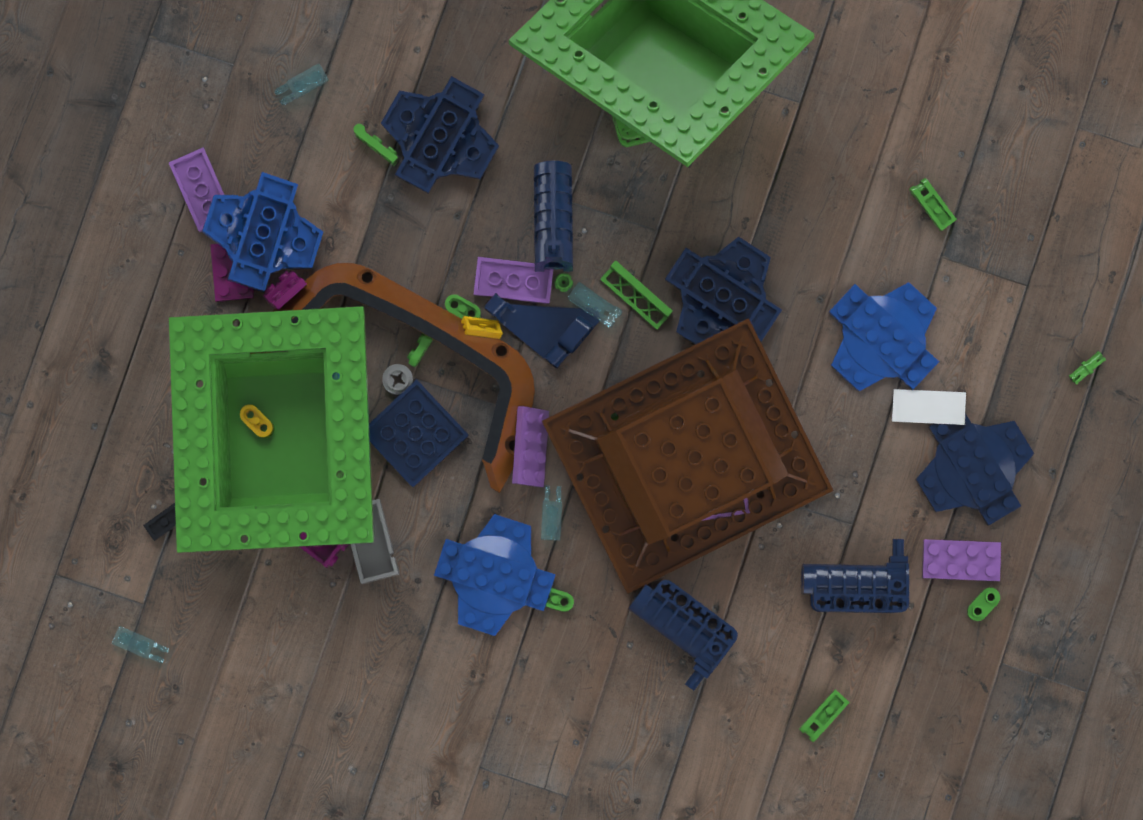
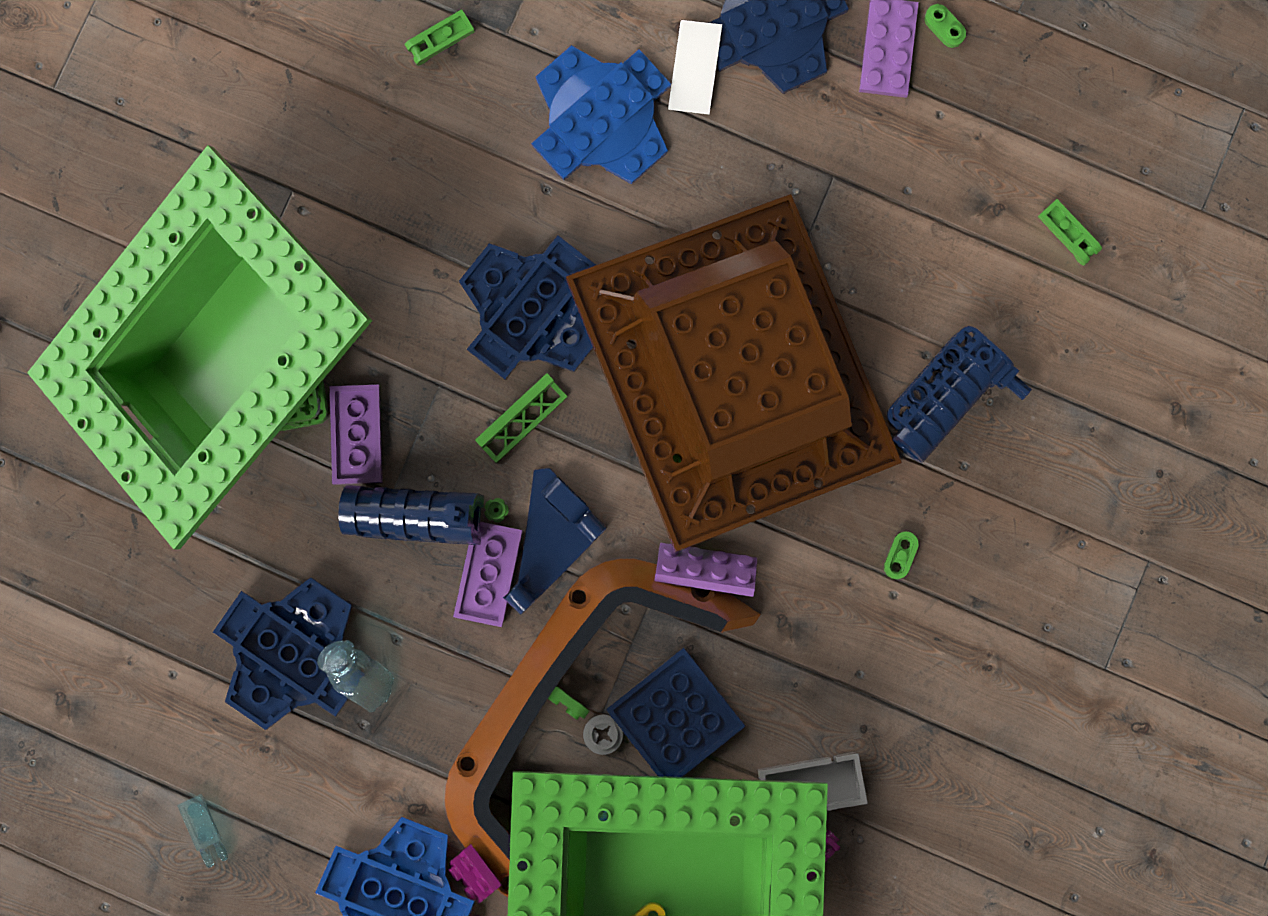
camera: 85 degrees left, 0 degrees up
(376, 144) = (293, 738): bright green plate -> none
(427, 187) = (356, 674): none -> clear light blue hair
(463, 308) = (519, 642): bright green plate -> none
(481, 327) = (546, 614): yellow tile -> none
(494, 575) = (865, 629): blue plate -> none
(551, 516) = (795, 550): clear light blue hinge -> none
(594, 305) = (529, 472): clear light blue plate -> none
(612, 169) = (356, 434): none -> medium lavender plate
(859, 583) = (911, 169): dark blue piece -> none

